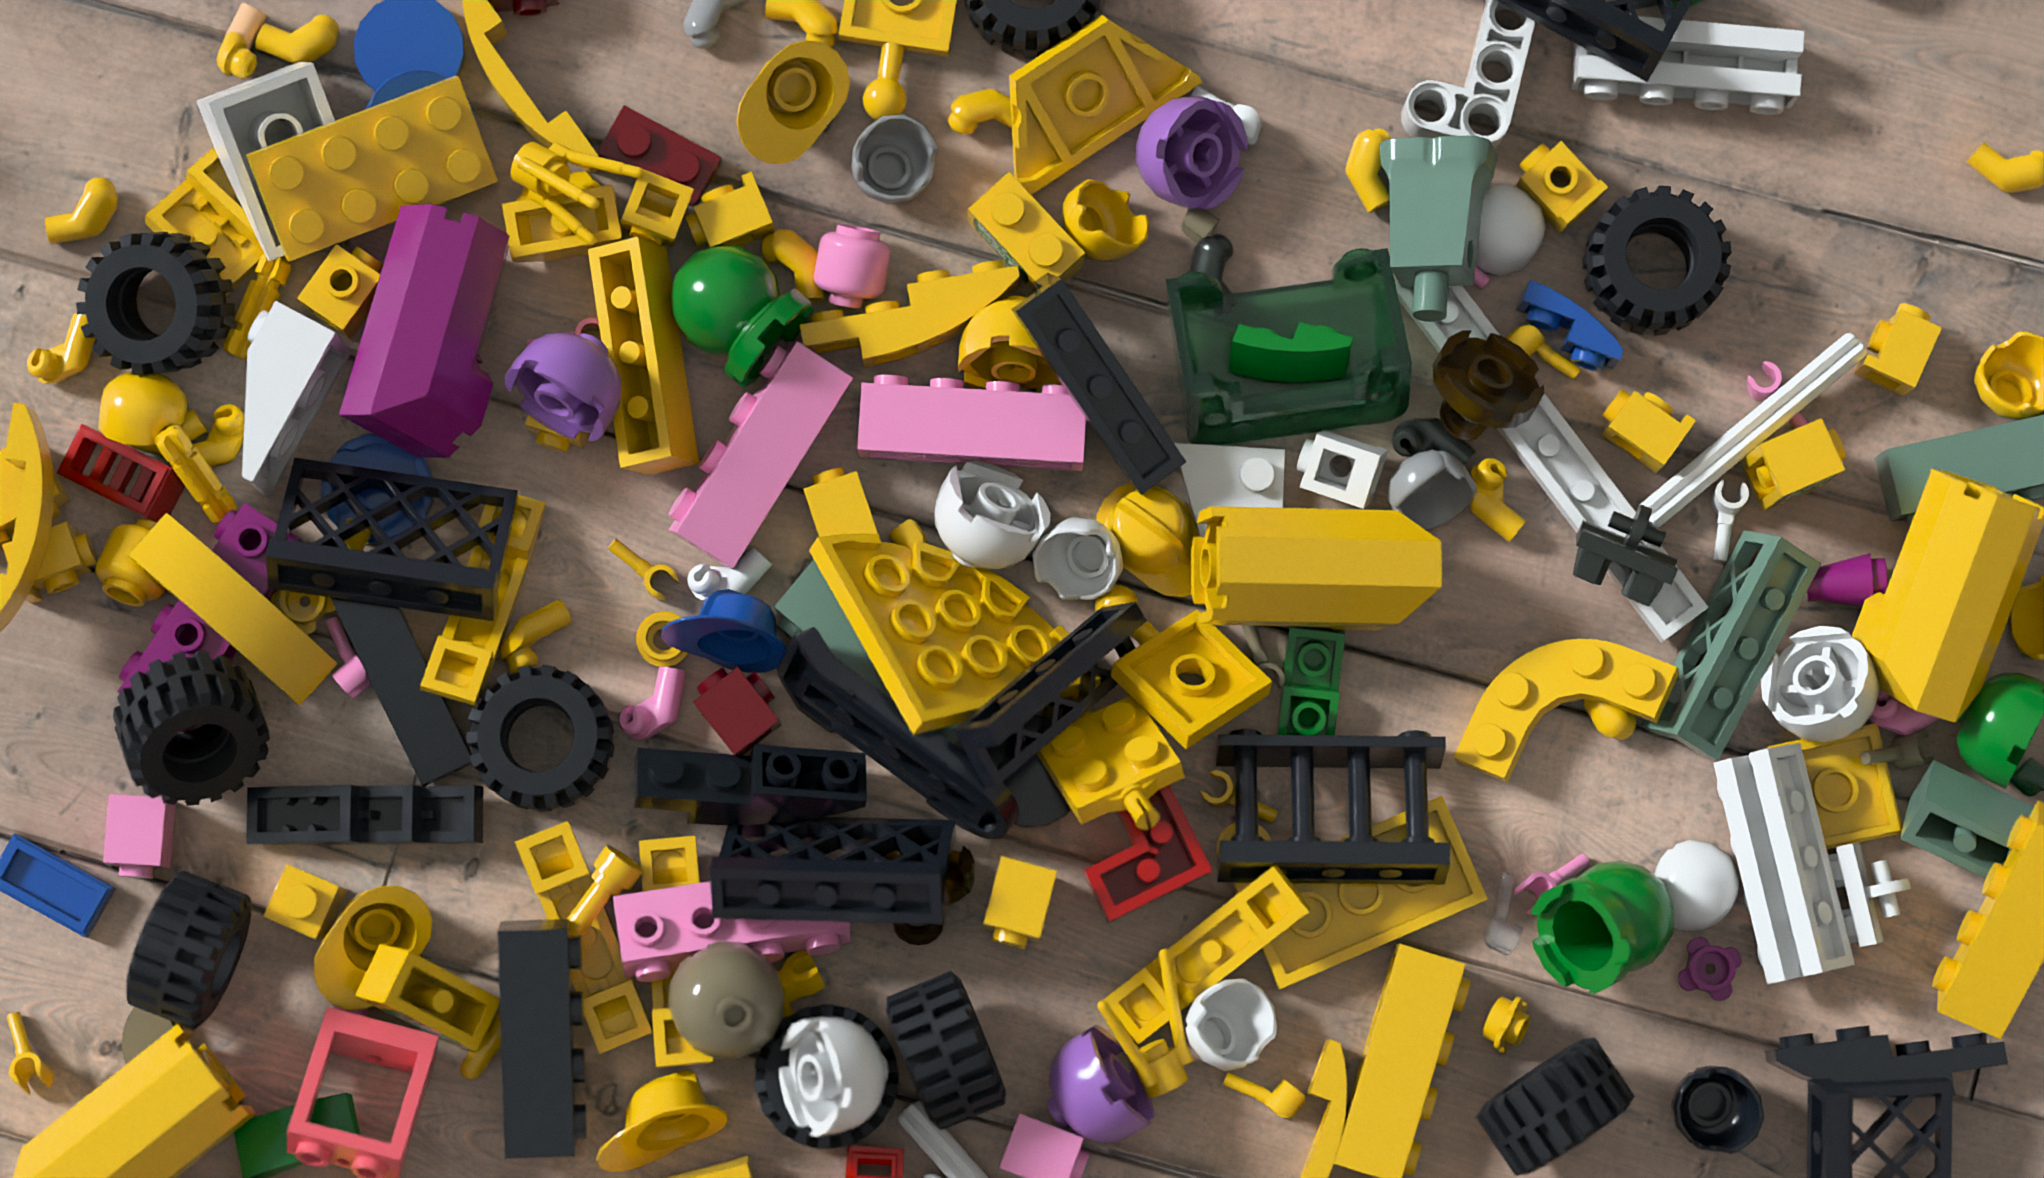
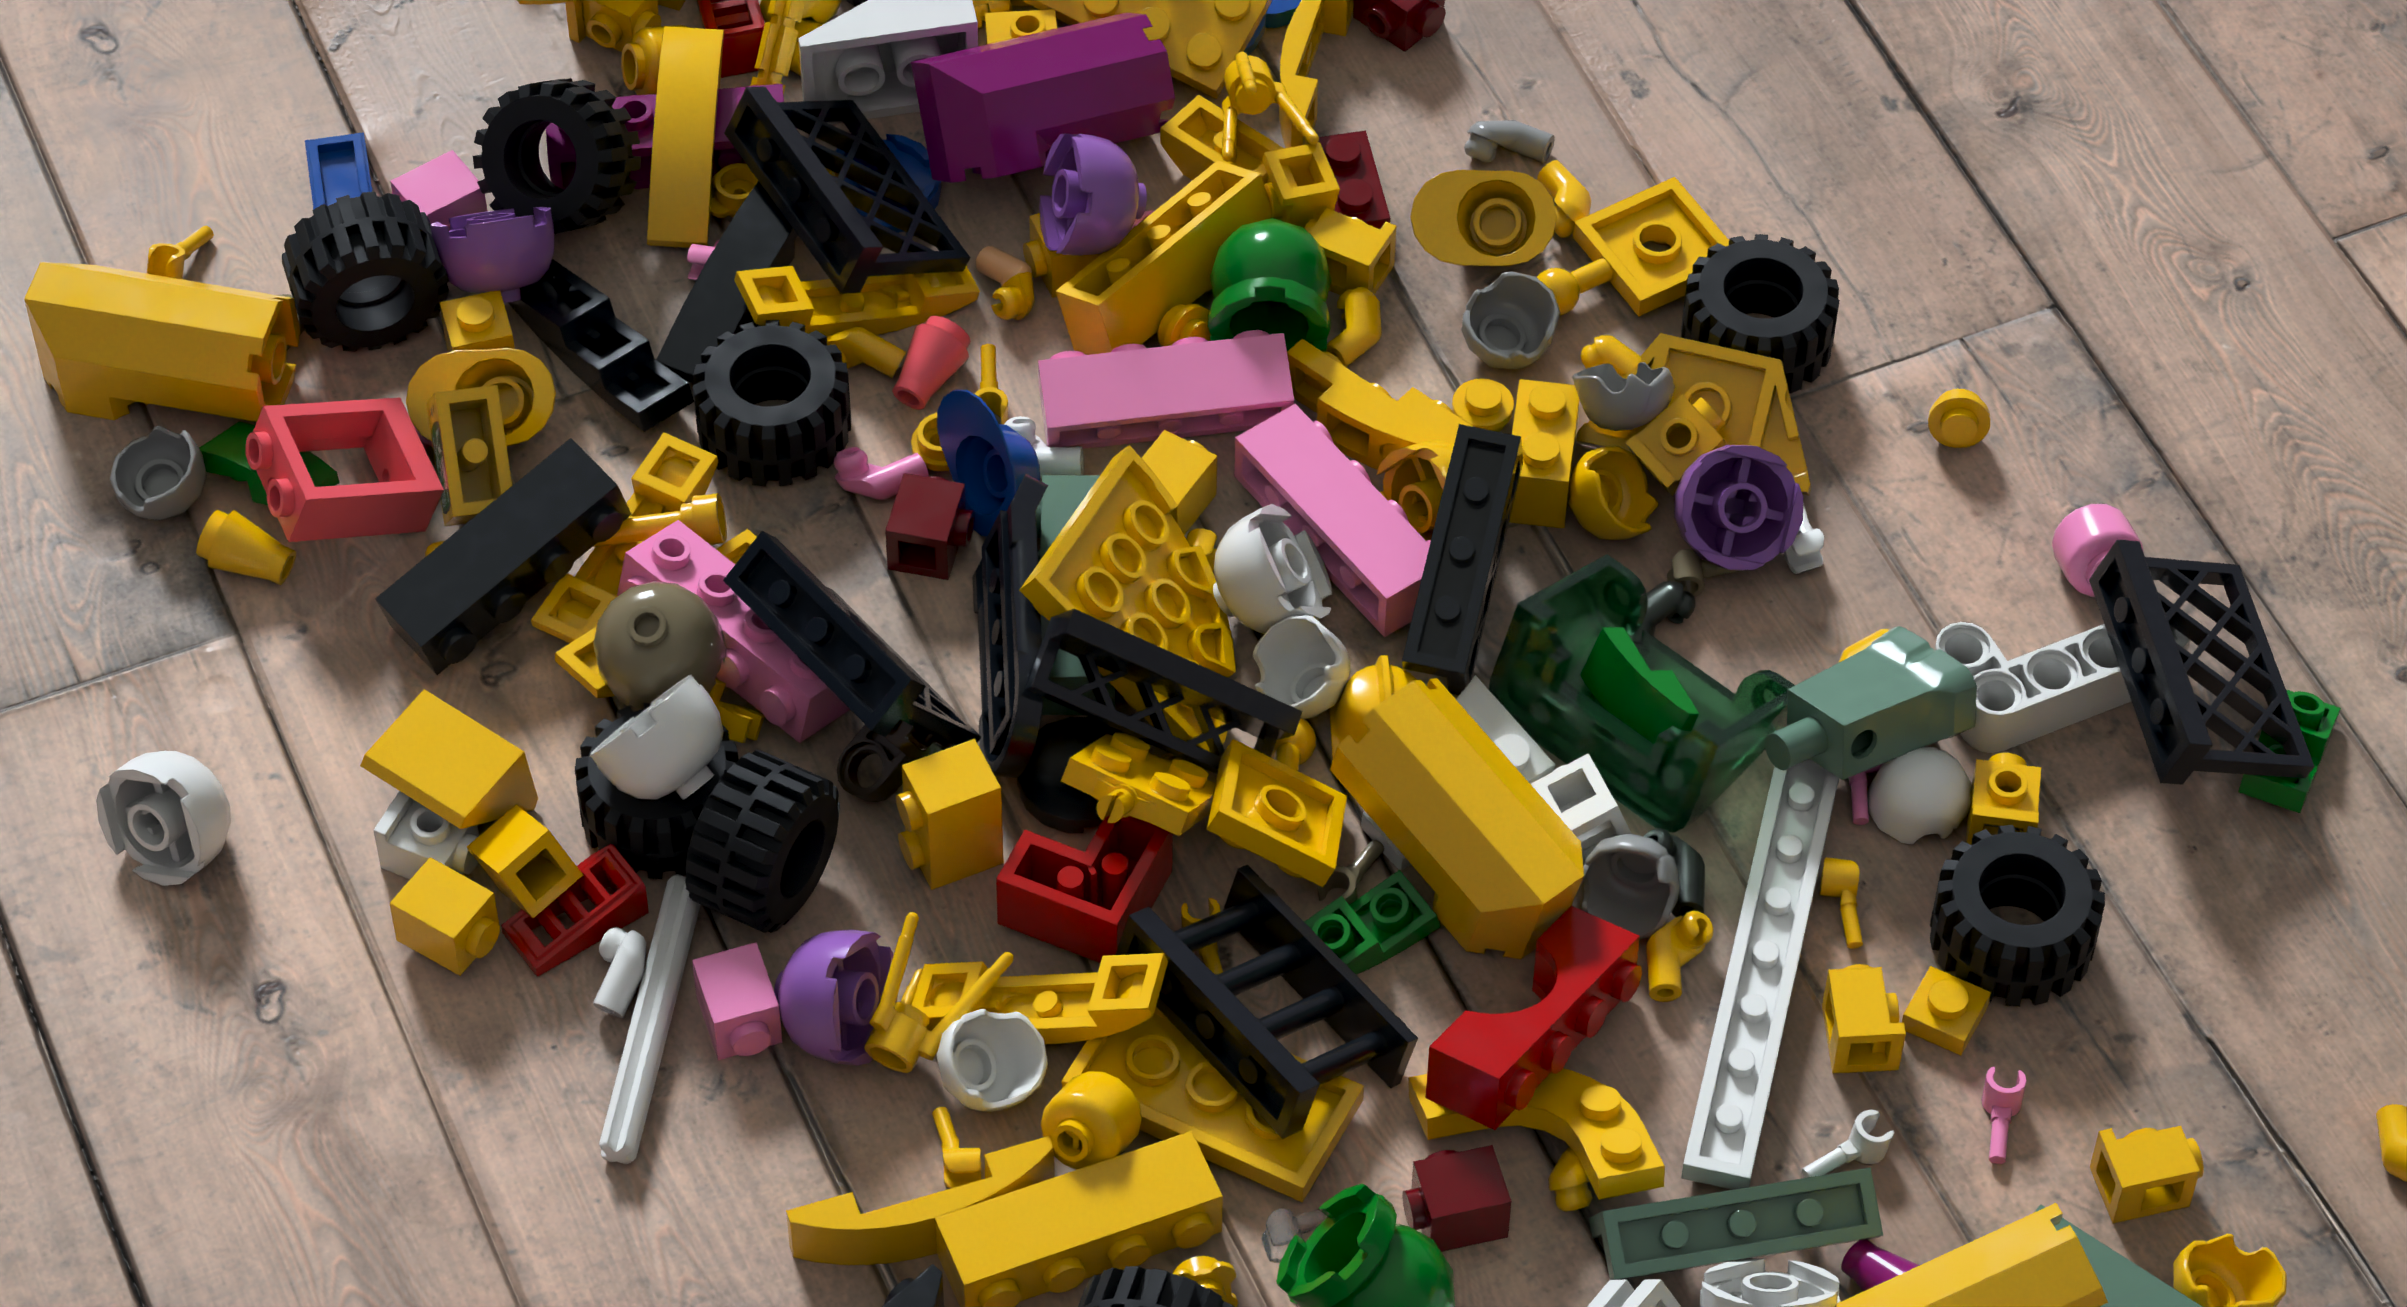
camera: 55 degrees right, 30 degrees down
(241, 837) = (496, 250): none -> medium lavender cylinder
(557, 469) = (1015, 282): none -> arm
(585, 590) = (931, 359): none -> coral cone
(661, 1120) = (511, 695): yellow piece -> none
(709, 389) = (1183, 322): none -> yellow plate
(755, 789) = (876, 581): black slope -> none
(852, 265) = (1394, 353): bright pink head -> none
(941, 235) = (1483, 404): none -> yellow plate
(1046, 152) = (1622, 402): none -> light grey hair
(1090, 129) = (1668, 462): none -> yellow brick
(1338, 1001) = (1091, 1119): none -> yellow head
(1486, 383) = (1760, 842): dark brown tile -> none
(1513, 711) = (1496, 1061): none -> red arch
(1570, 804) = (1459, 1198): none -> dark red brick
(1585, 338) = (1890, 900): blue slope -> none
(1647, 565) = (1730, 1086): pearl dark grey hips -> none
(1674, 362) = (1945, 1010): none -> yellow plate
(1706, 65) = (2227, 839): white brick -> none
(1754, 429) = (1947, 1103): white axle -> none
(1794, 464) = (1948, 1139): yellow brick -> none

